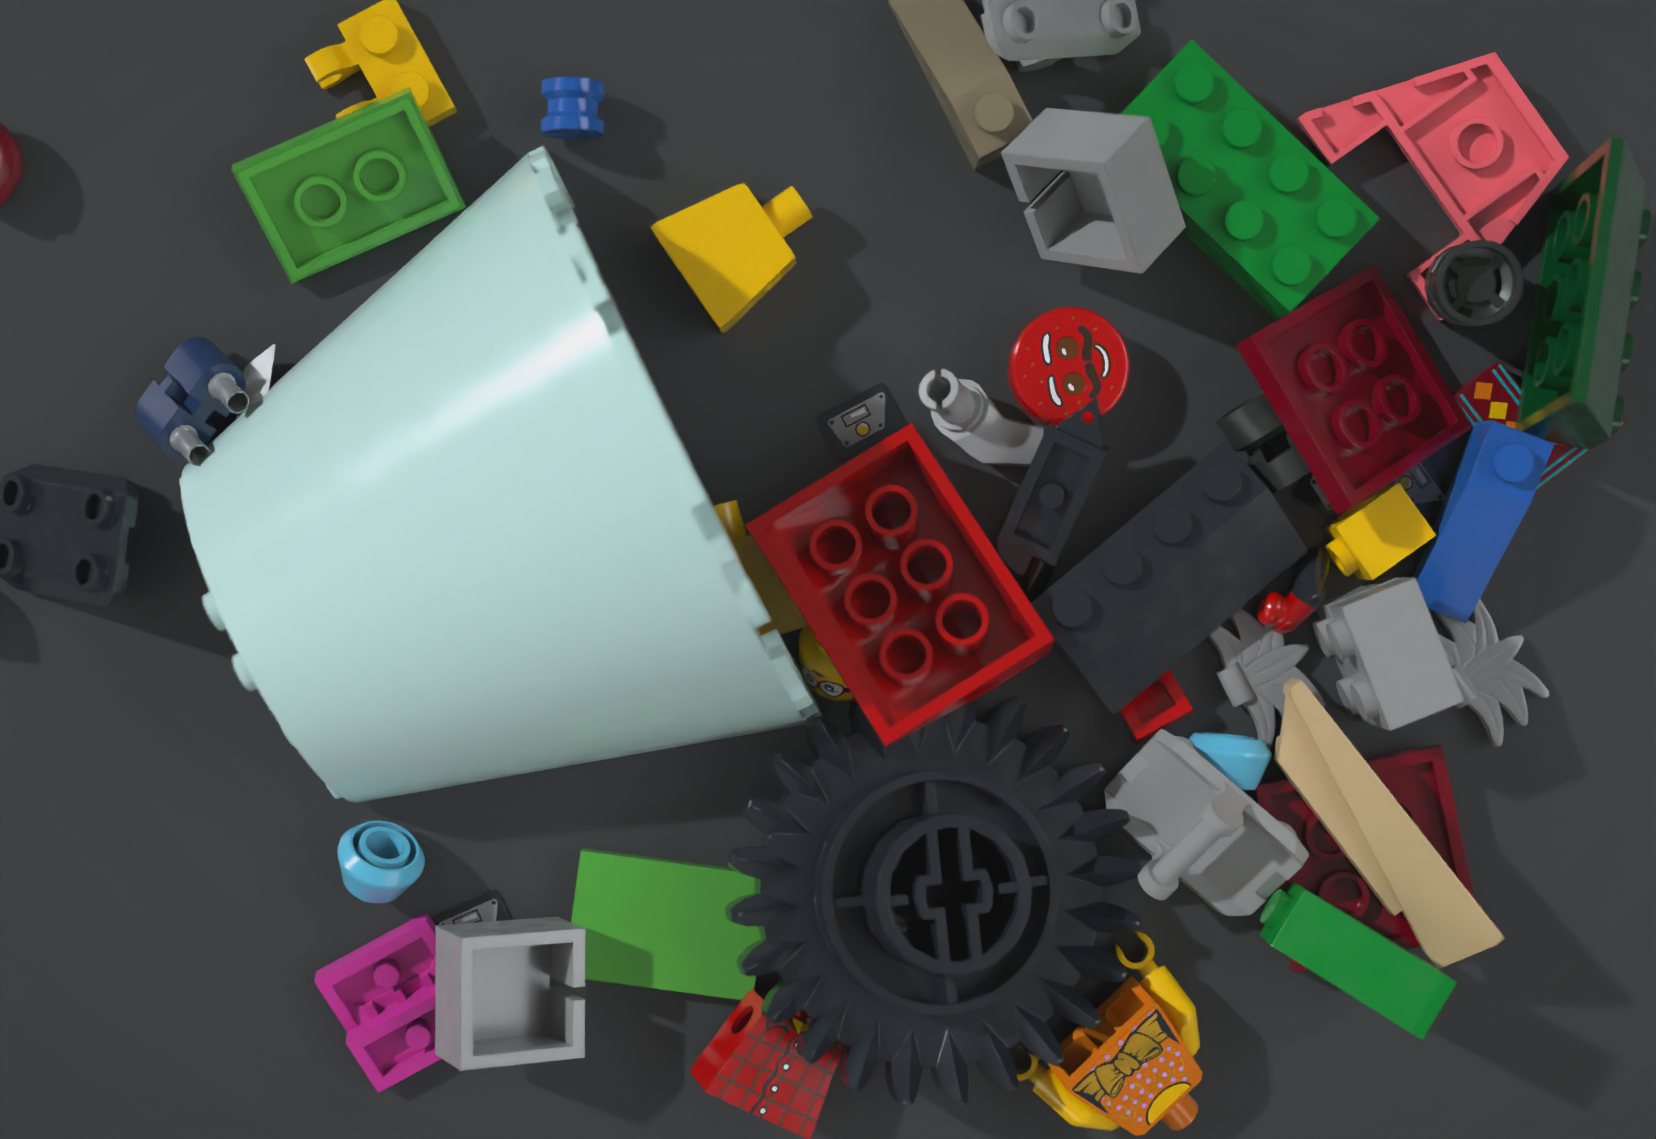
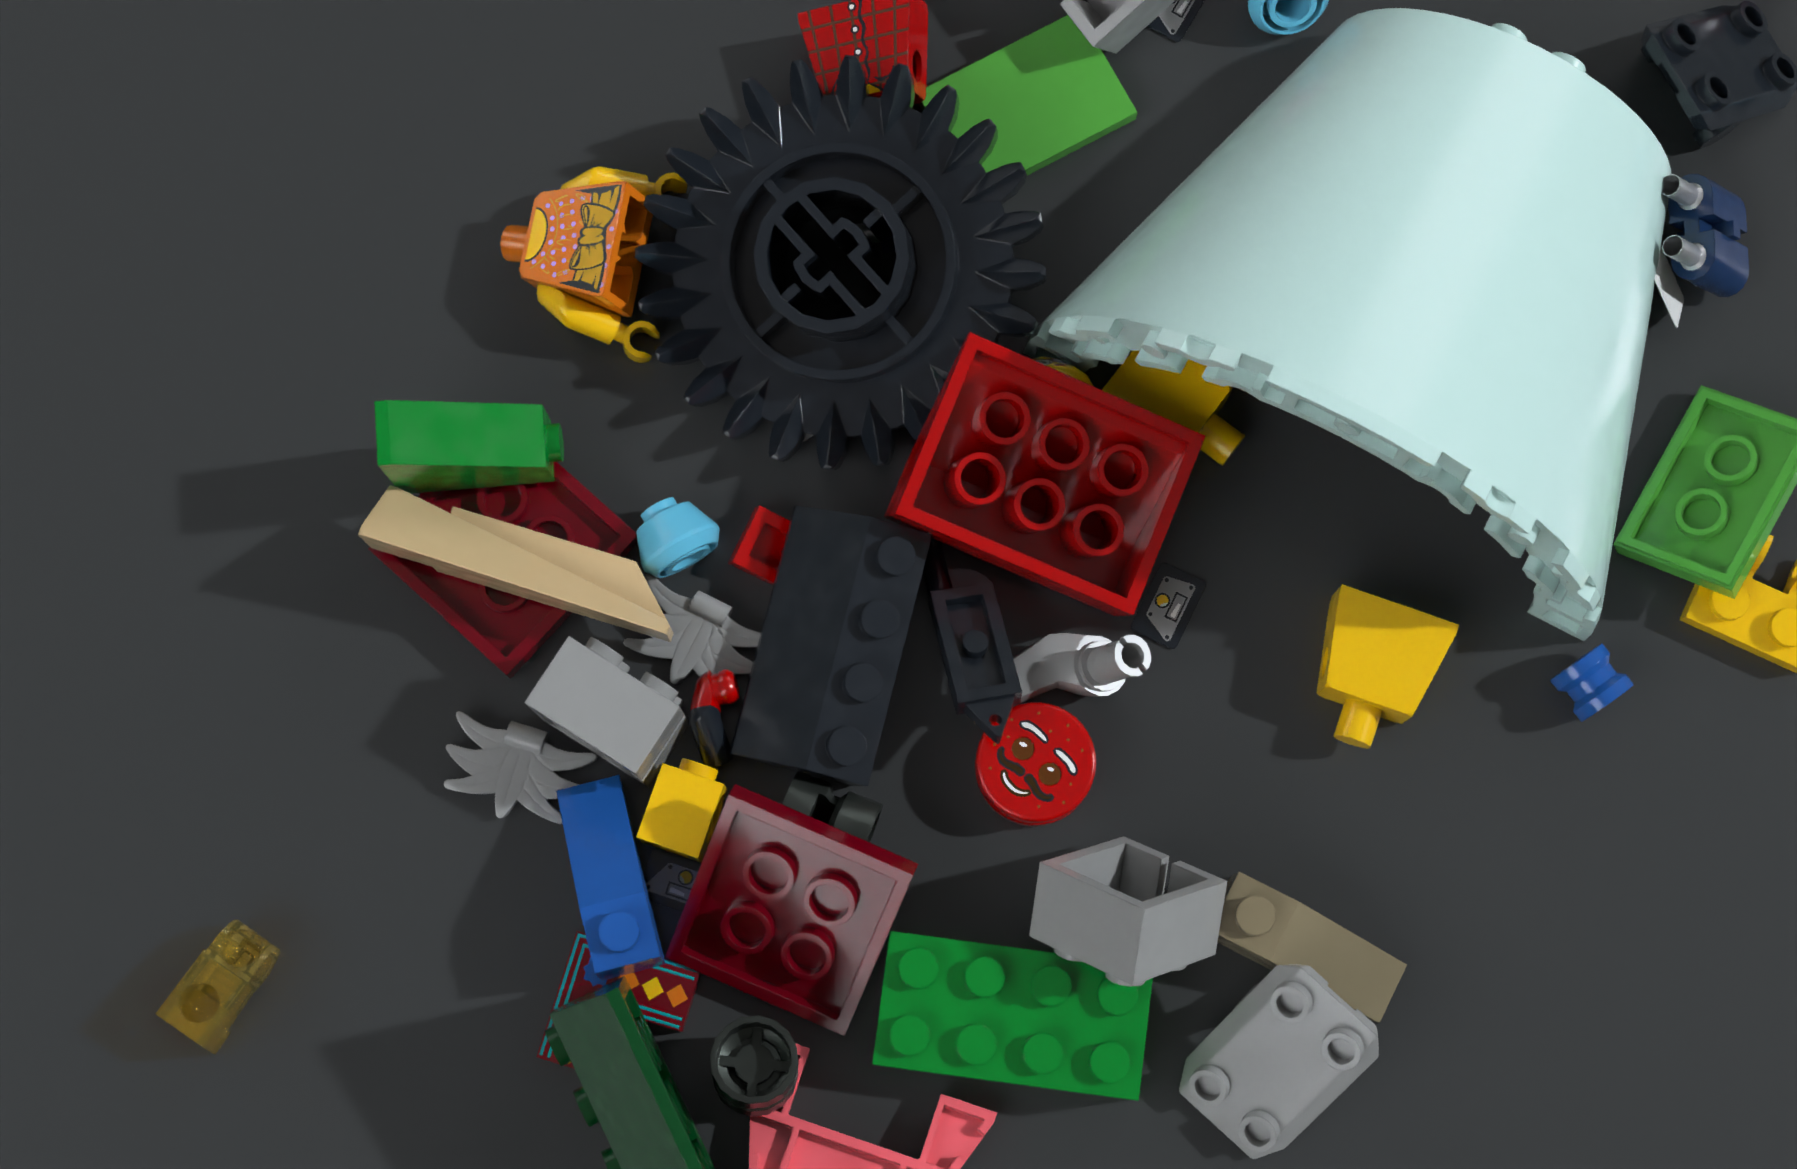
camera: 145 degrees right, 10 degrees down
(1201, 829) = (659, 465): light grey shield -> none

